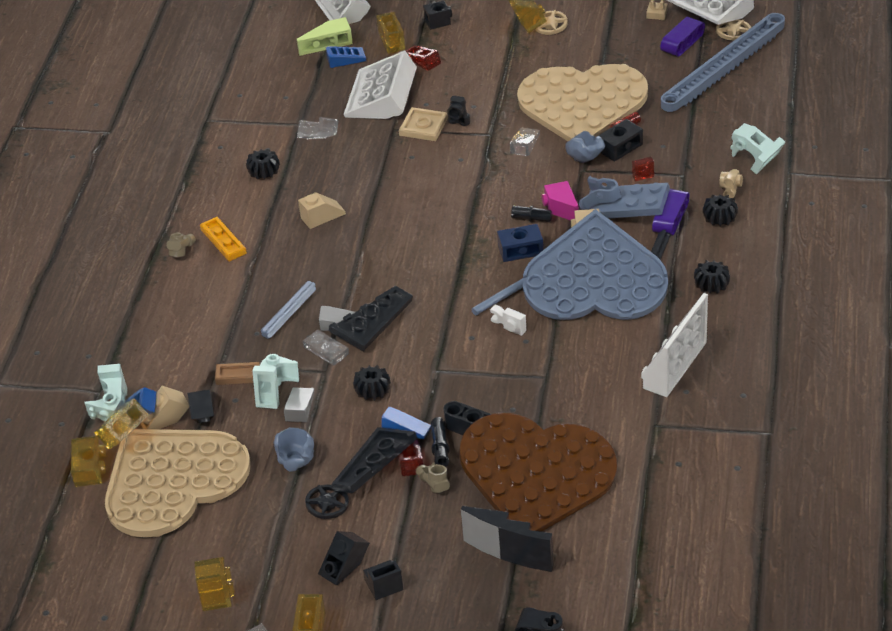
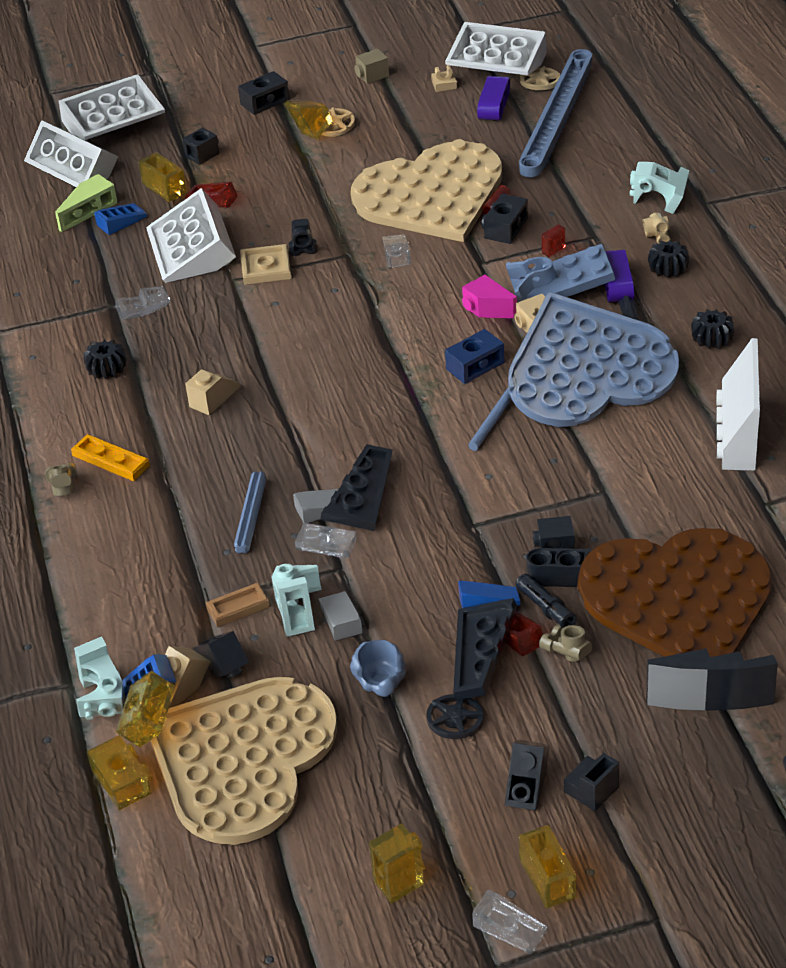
camera: 25 degrees left, 0 degrees up
(371, 382) = (414, 561): black gear -> none
(481, 396) = (554, 533): none -> black brick
(511, 319) = (527, 441): white plate -> none
(531, 213) = (462, 322): black axle -> none
(584, 147) = (474, 237): sand blue hair -> none

